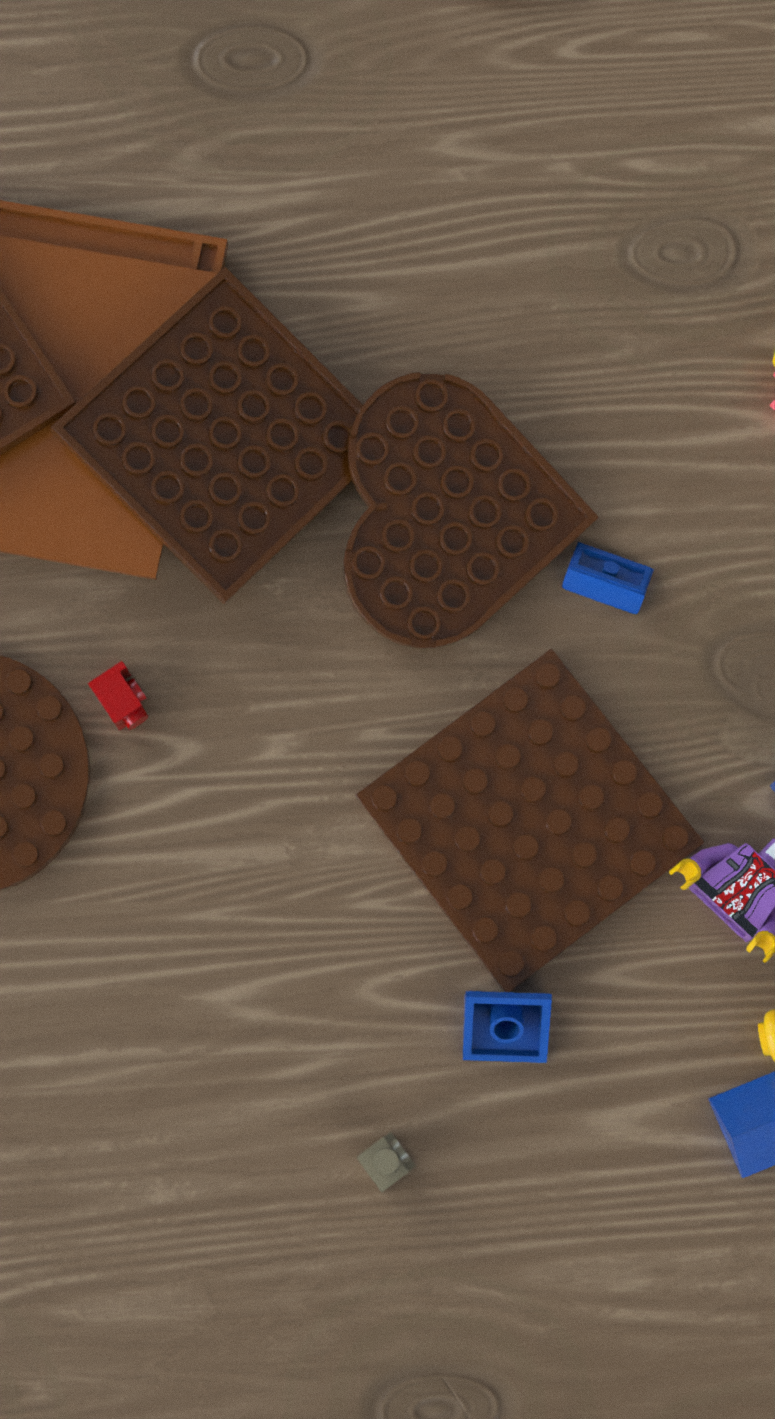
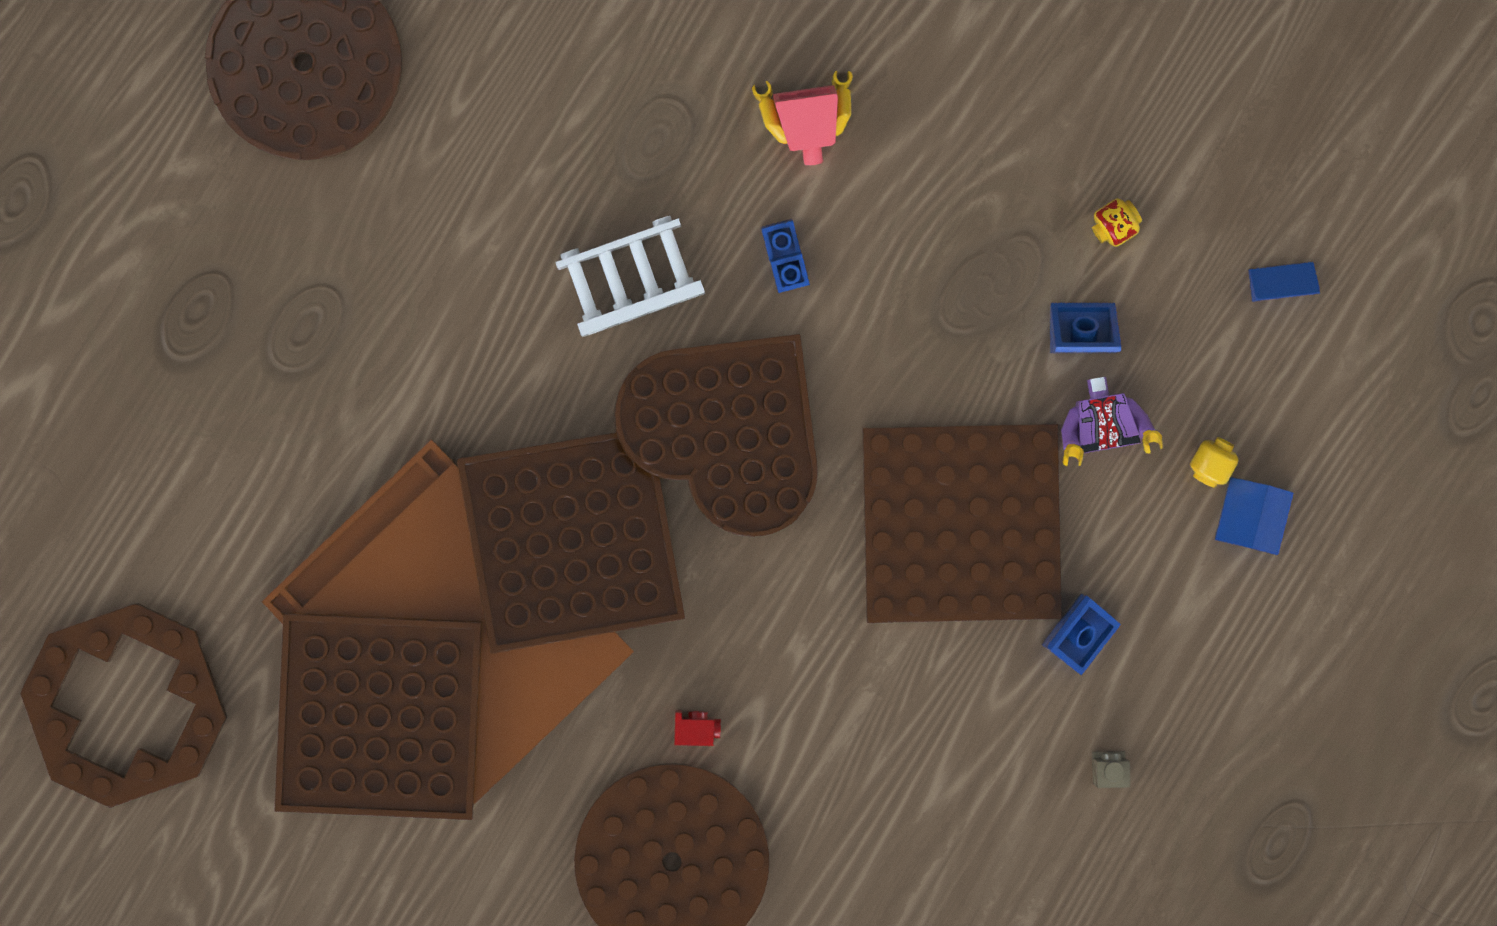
camera: 55 degrees left, 10 degrees up
(526, 354) = (624, 308): none -> white fence
(607, 578) = (841, 355): blue slope -> none
(664, 450) = (785, 255): none -> blue slope

